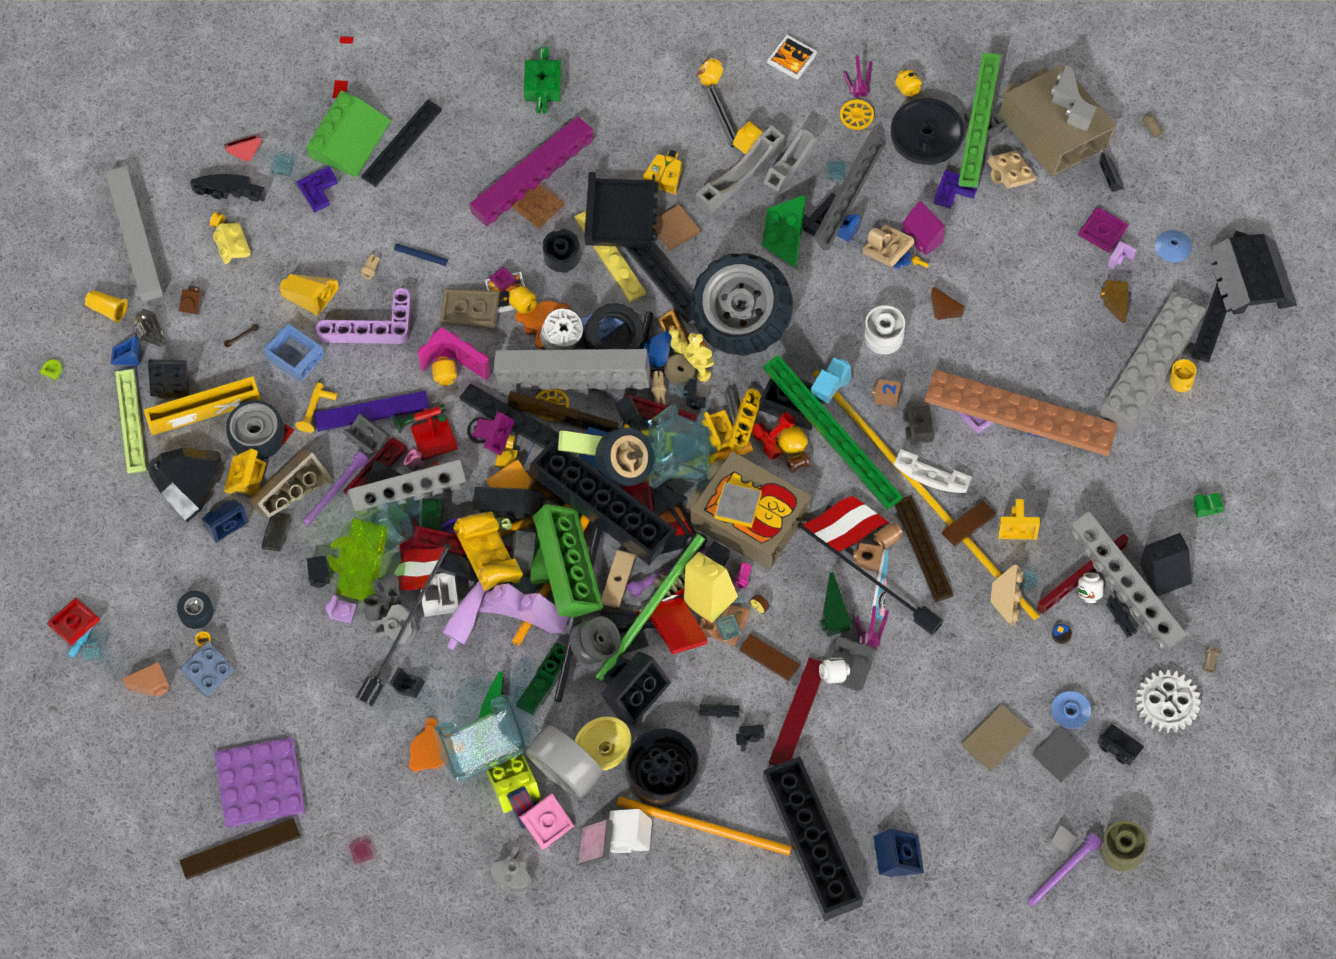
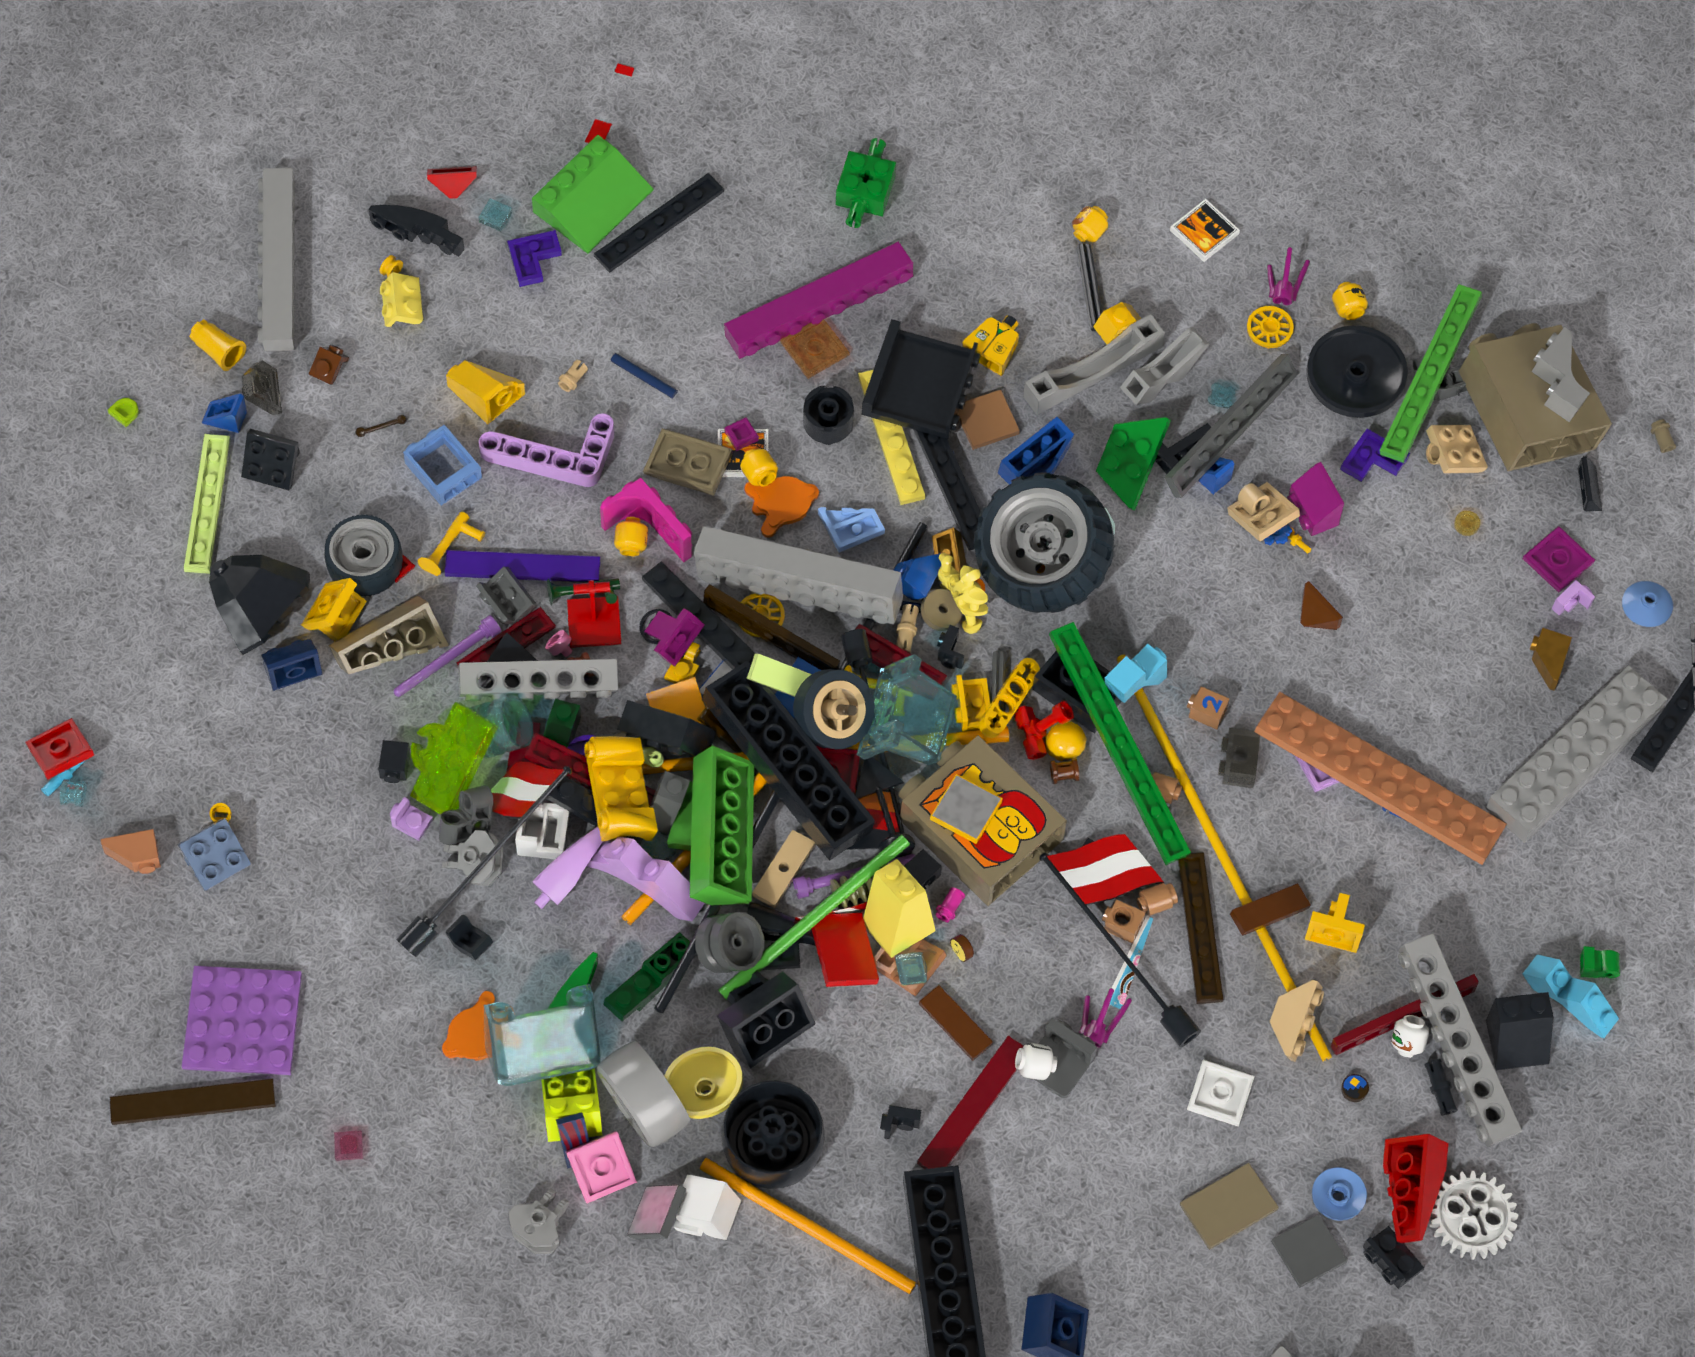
camera: 10 degrees right, 0 degrees up
(190, 604) = (224, 763): black wheel -> none
(201, 405) = (301, 505): yellow brick -> none
(276, 532) = (353, 695): clear smoke slope -> none
(553, 338) = (798, 534): white wheel -> none
(619, 312) = (879, 513): black tyre -> none
(718, 243) = (1039, 453): none -> blue wedge
(718, 710) = (869, 1076): black pin -> none
(834, 615) = (1057, 985): dark green slope -> none
(874, 455) = (1168, 787): none -> medium nougat brick
(884, 329) = (1227, 622): white wheel -> none
(931, 476) = (1236, 833): white slope -> none
(969, 660) = (1220, 1092): none -> white tile
(1029, 575) = (1335, 1002): clear light blue plate -> none
(1032, 219) = (1467, 523): none -> clear yellow tile
(1121, 685) = (1415, 1177): none -> red wedge
(1182, 375) = (1611, 781): yellow wheel -> none
(1200, 531) = (1576, 995): none -> medium azure arch
(1210, 659) = (1546, 1173): dark tan pin -> none

